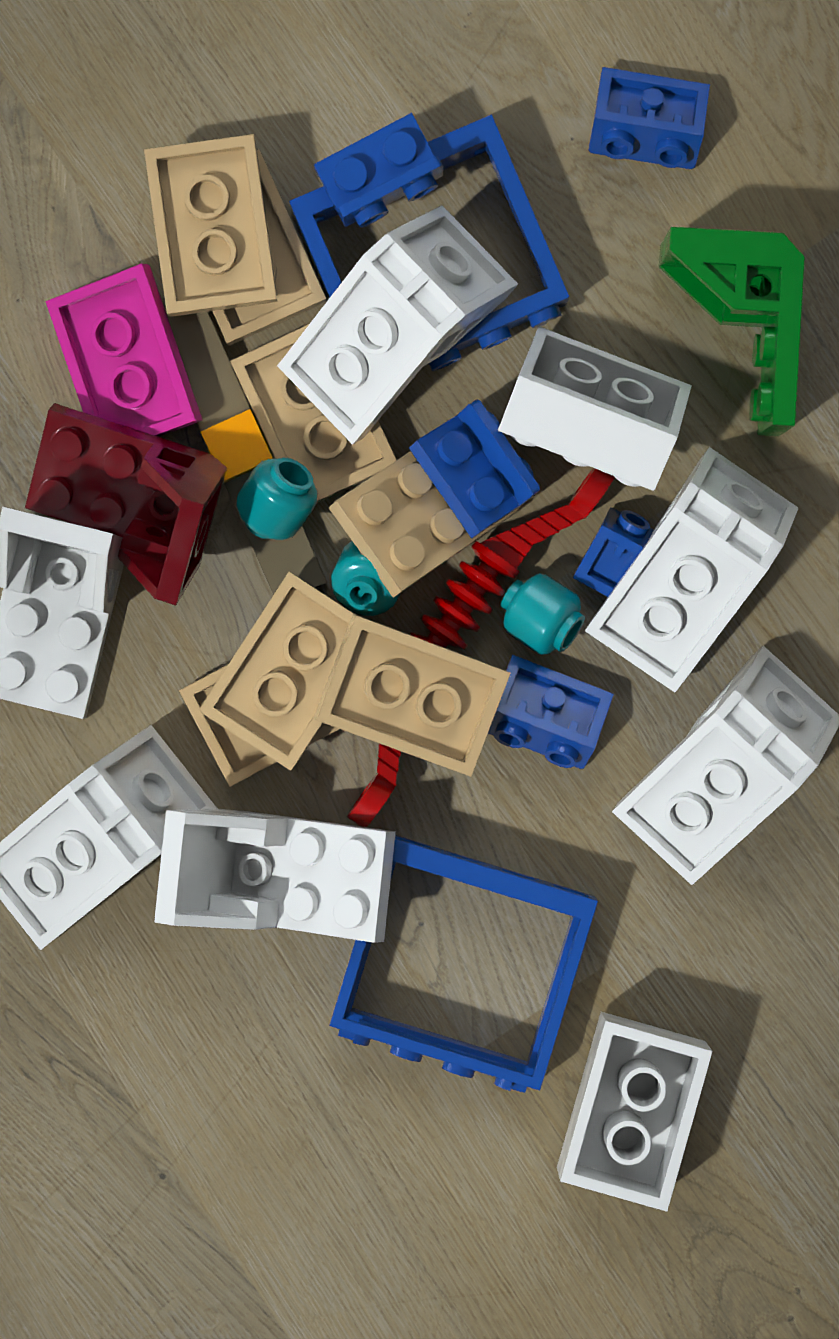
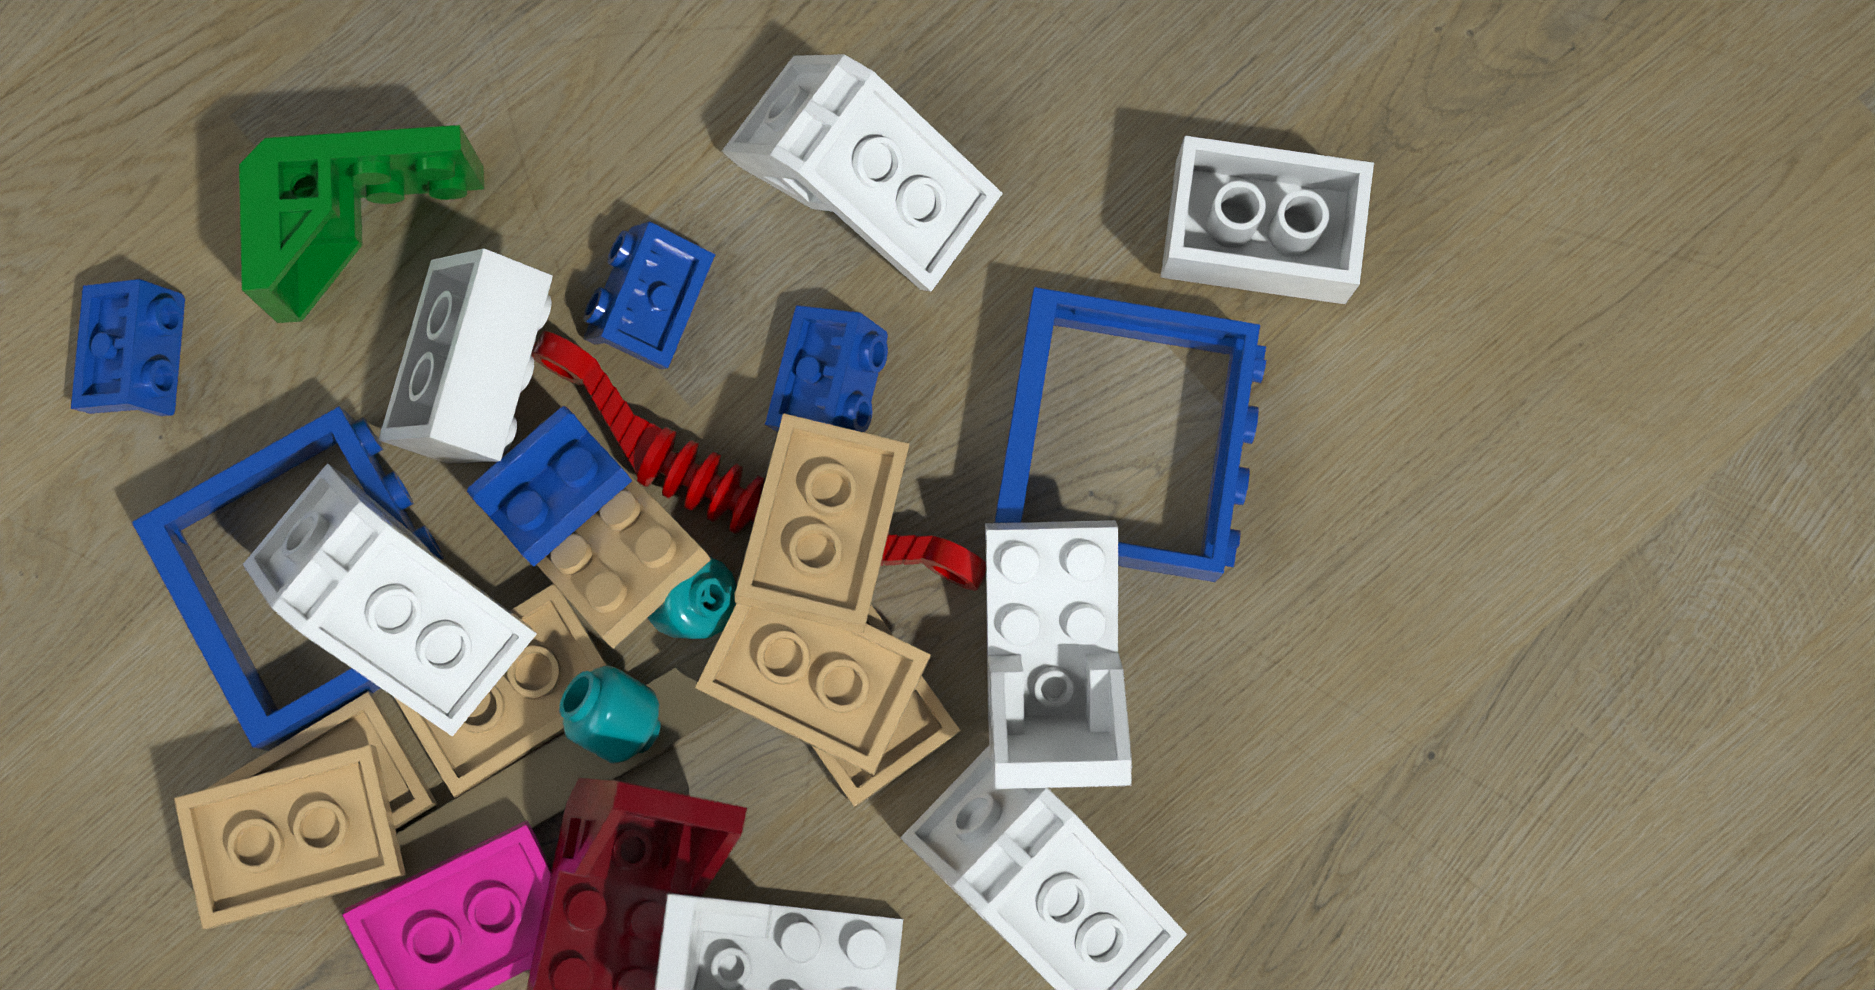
camera: 110 degrees left, 10 degrees down
(237, 444) = (550, 773): light orange tile -> none
(380, 171) = (207, 641): blue bracket -> none
(542, 614) = (713, 396): teal head -> none
(694, 570) = (642, 220): white bracket -> none

